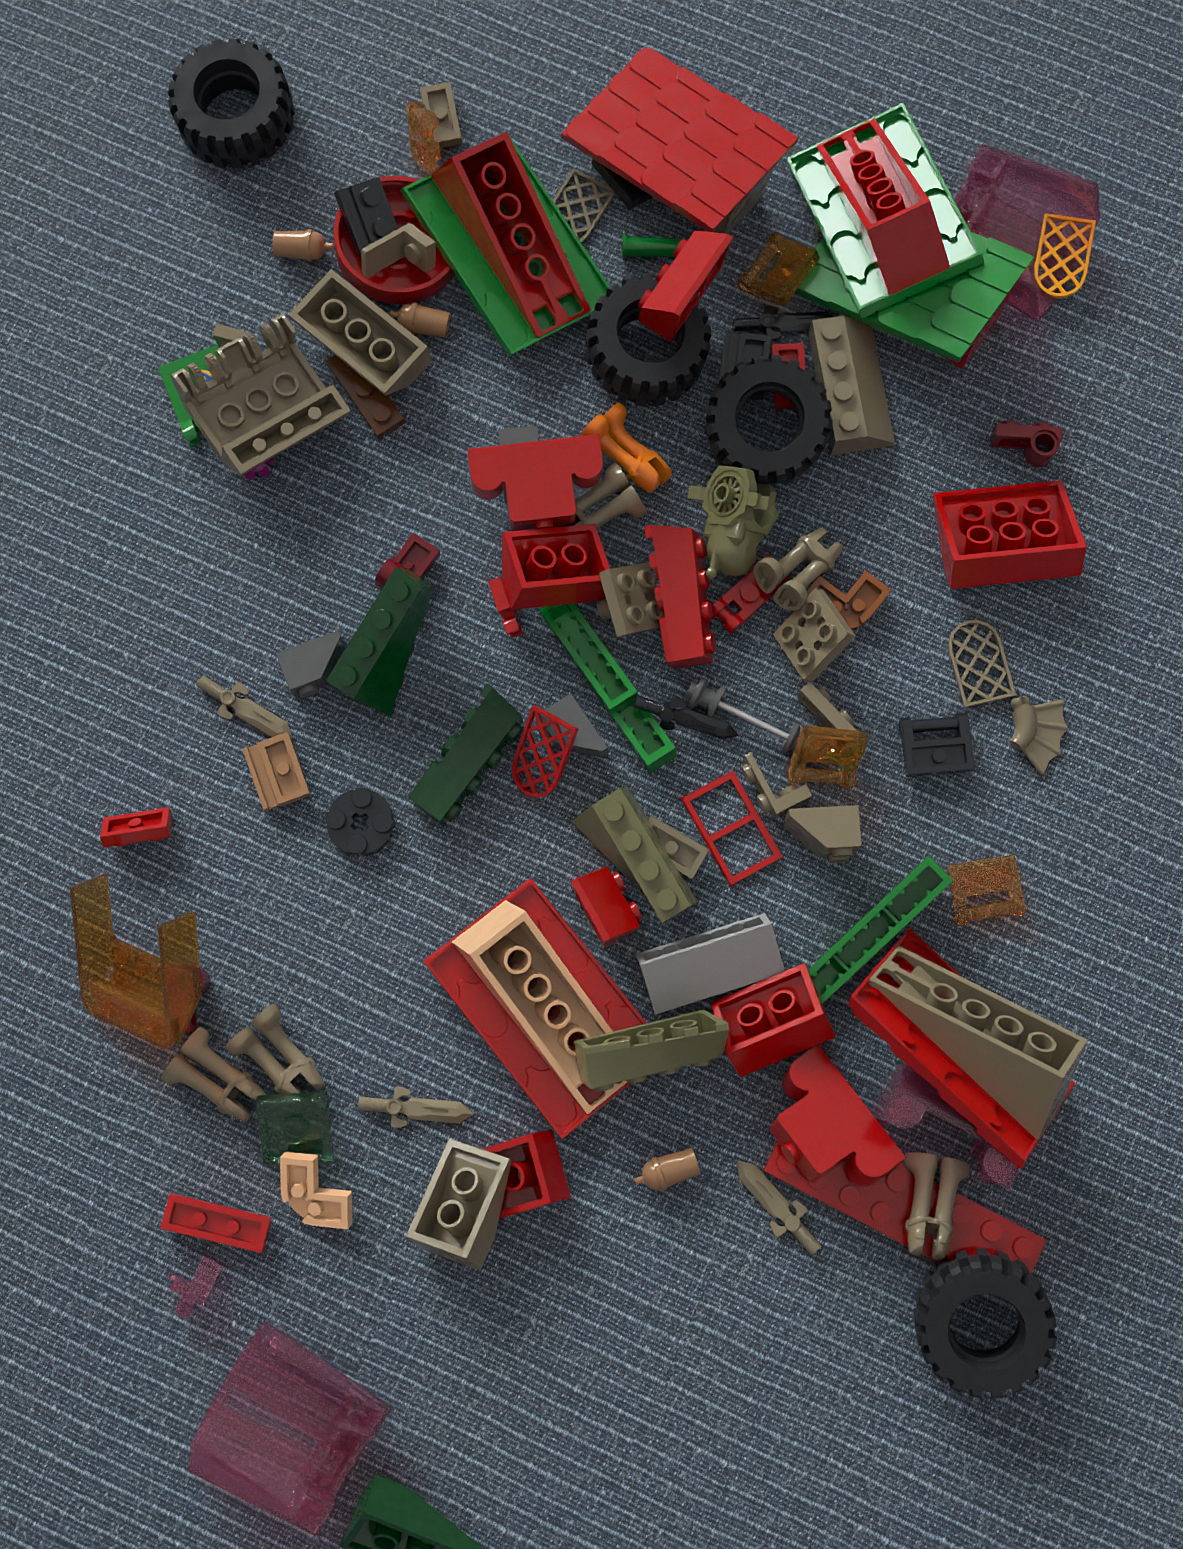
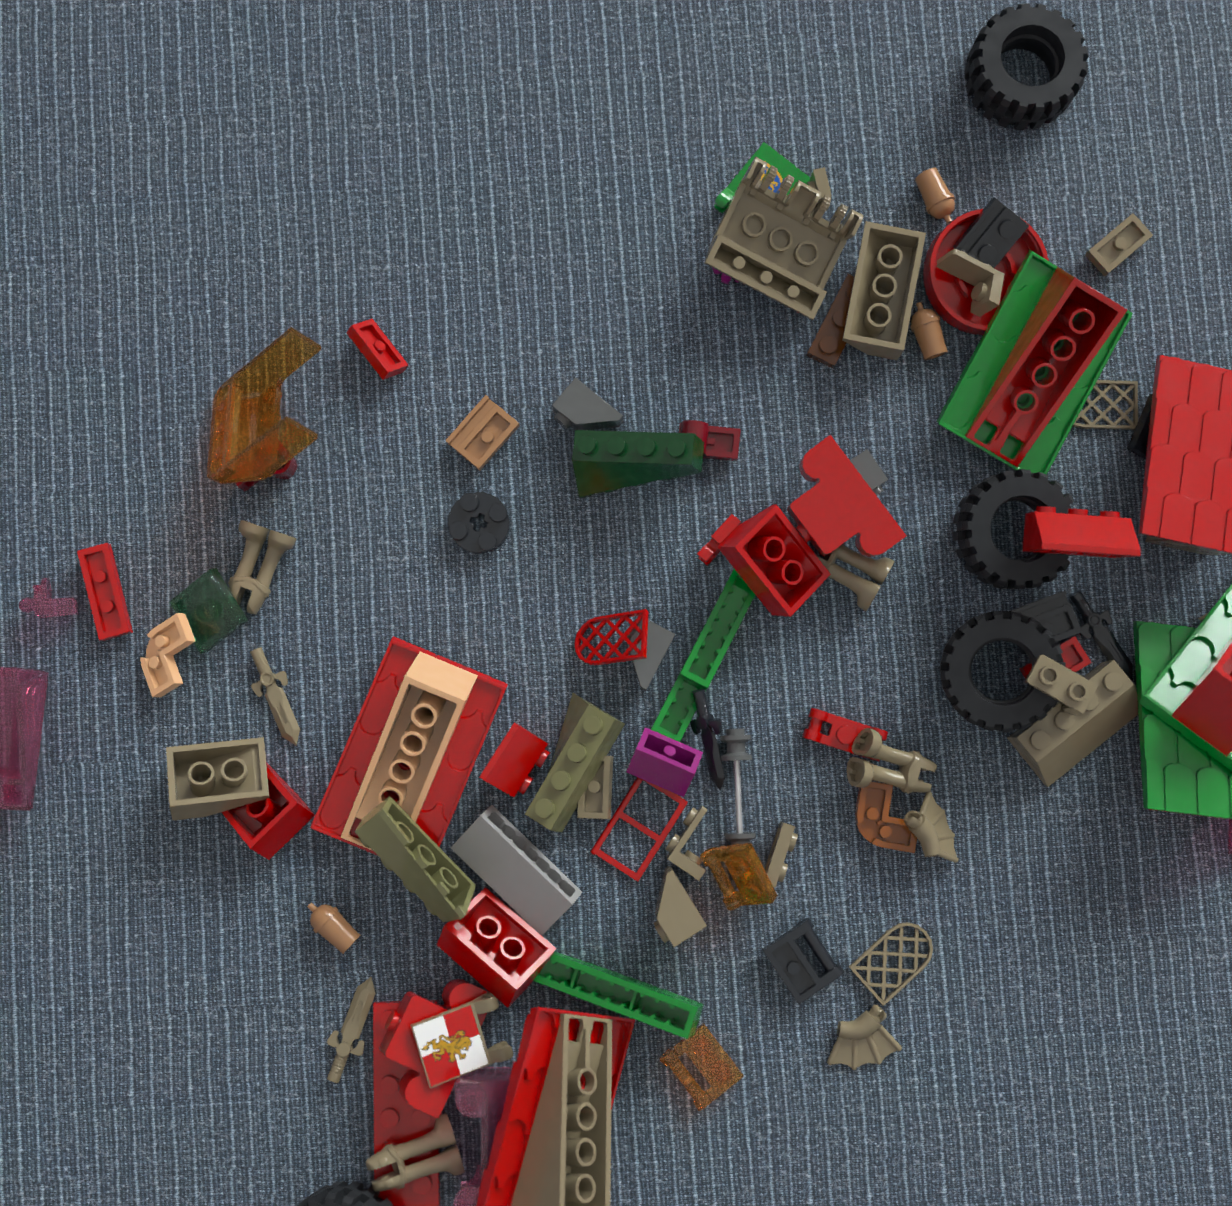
camera: 55 degrees right, 5 degrees up
(198, 1050) = (221, 544): dark tan piece -> none
(244, 708) = (521, 377): dark tan sword -> none
(422, 144) = (1095, 235): clear orange plate -> none
(467, 757) = (575, 579): dark green wedge -> none
(630, 599) = (782, 640): dark tan plate -> none
(640, 463) = (905, 587): orange piece -> none
(648, 246) = (1107, 492): green pin -> none
(682, 595) = (810, 680): red wedge -> none
(684, 768) = (664, 762): none -> magenta brick
(737, 518) = (902, 691): olive helmet -> none
(784, 275) = (1143, 613): clear orange plate -> none
(810, 370) = (1062, 684): none -> dark tan bracket
(820, 641) = (839, 817): dark tan plate -> none
(841, 1103) = (454, 1041): none -> flag
(878, 563) = (932, 830): none -> dark tan arm
(1008, 534) = (1021, 927): red slope -> none
(1015, 436) = (1111, 885): dark red plate -> none

